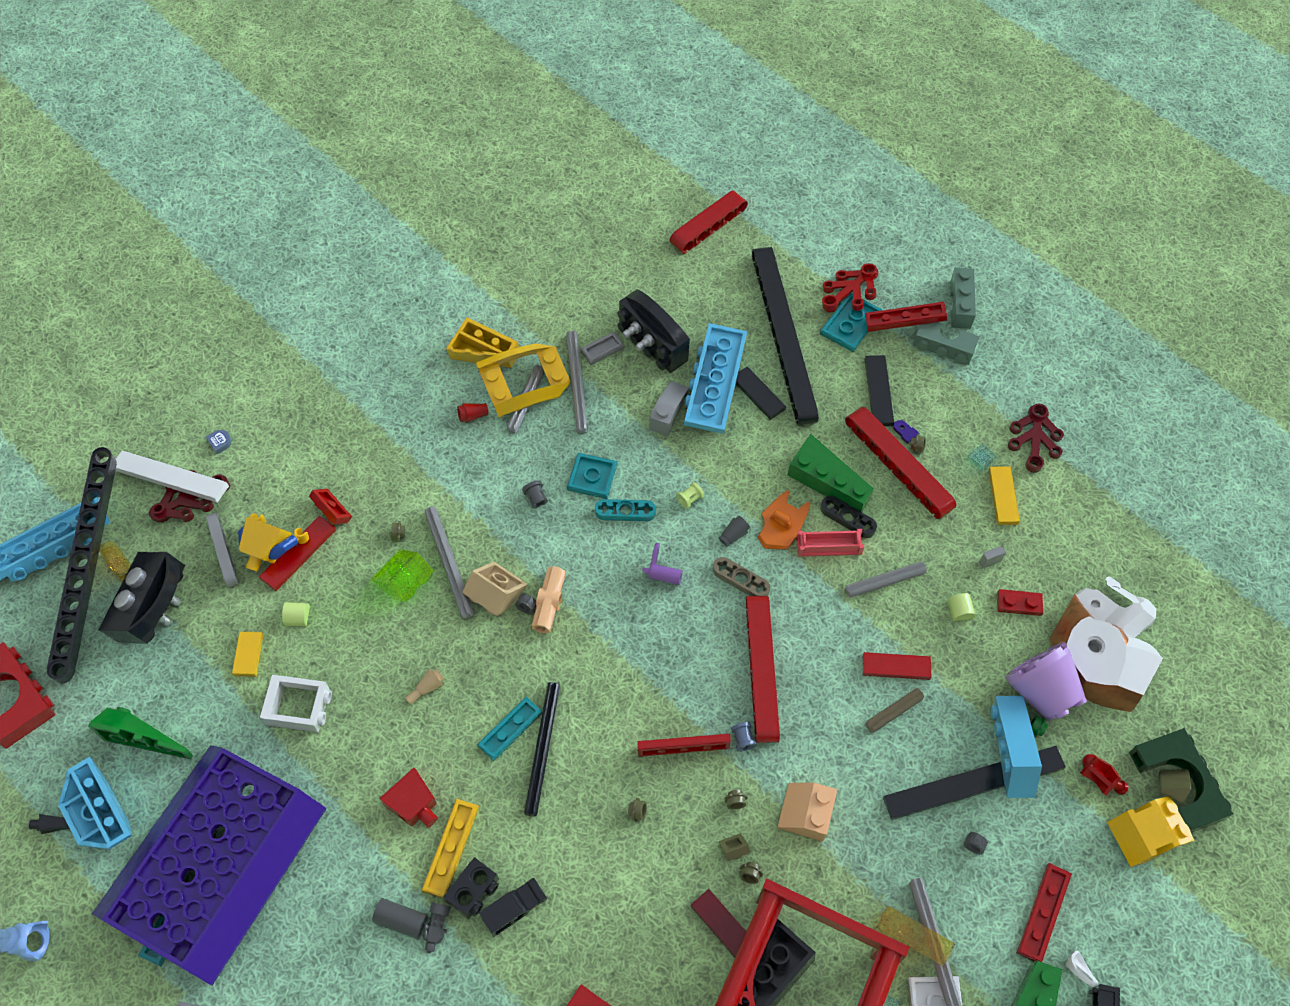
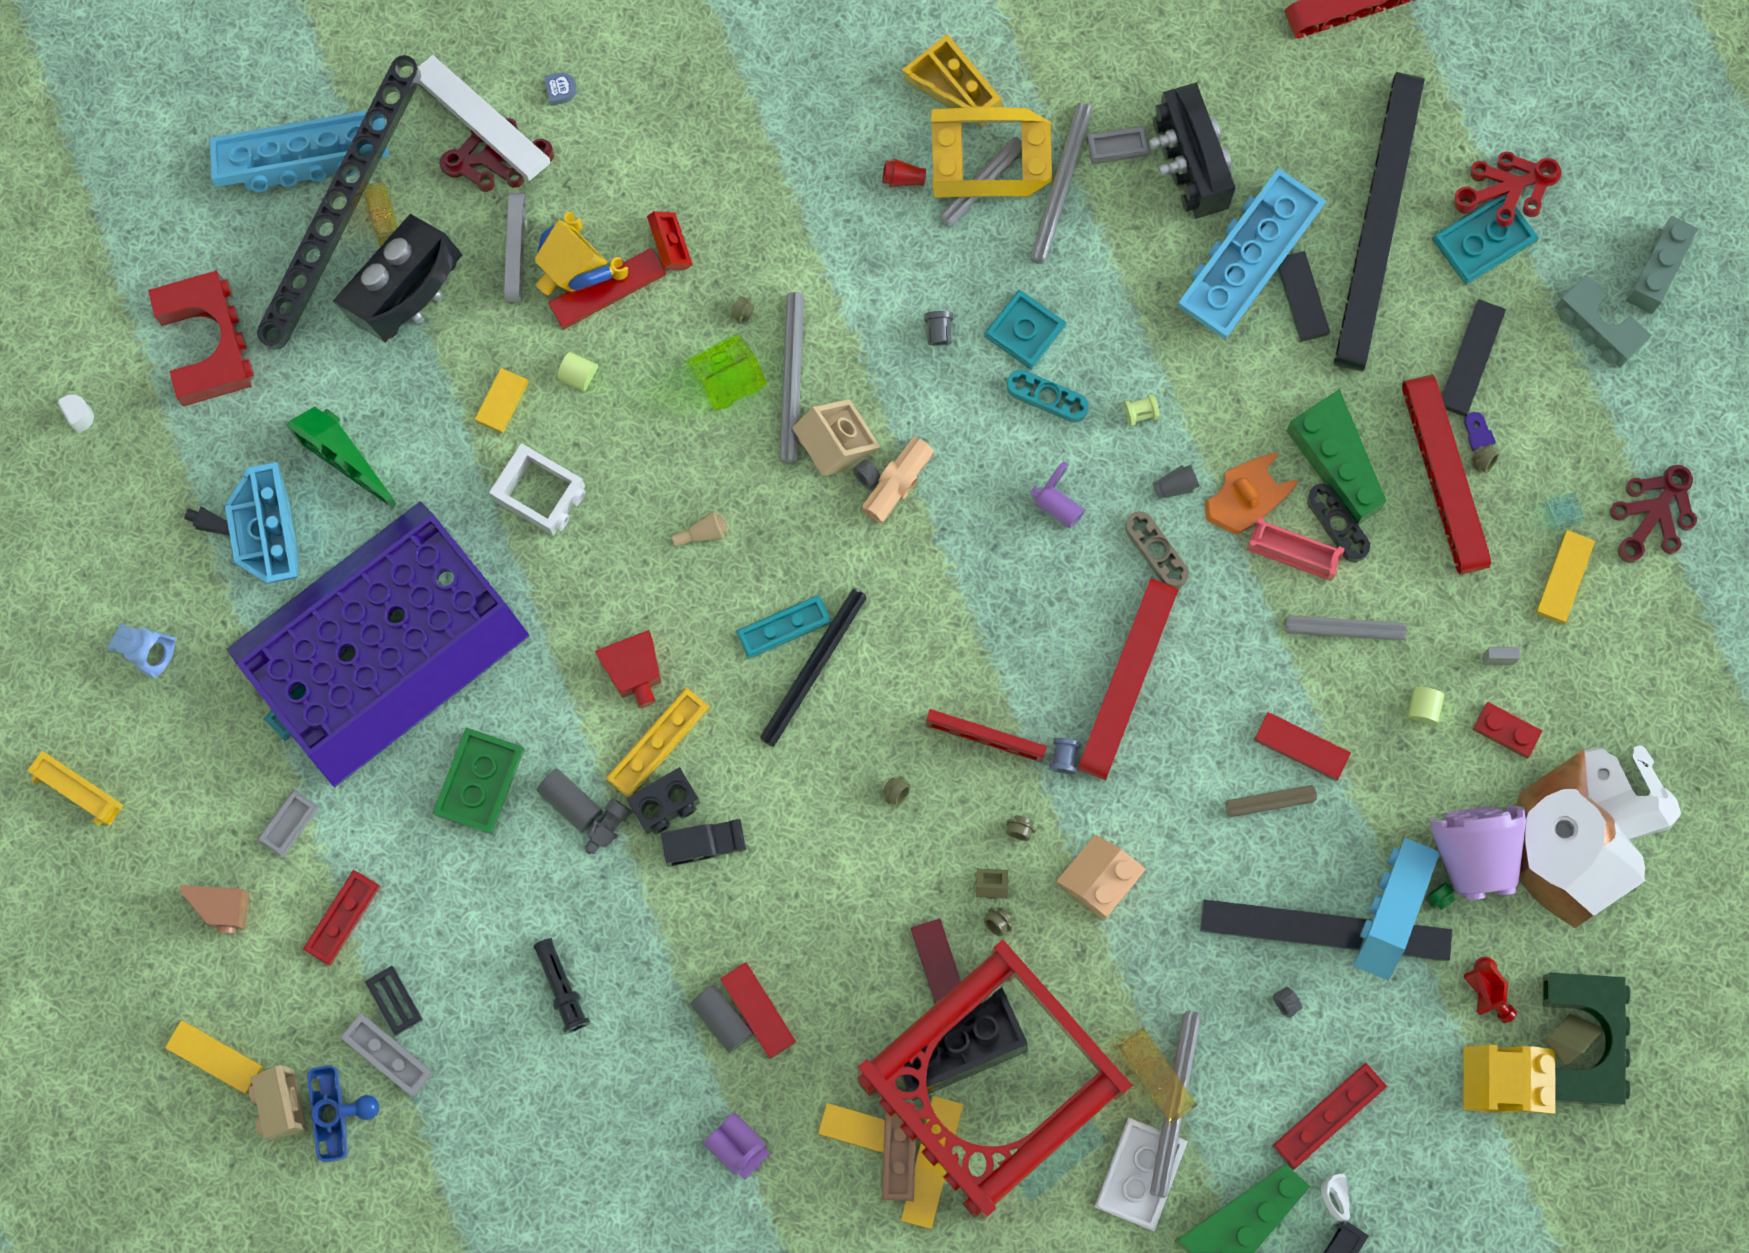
camera: 25 degrees right, 15 degrees up
(324, 933) = (478, 781): none -> green plate
(667, 408) = (1168, 270): light grey slope -> none
(906, 316) = (1561, 264): red tile -> none

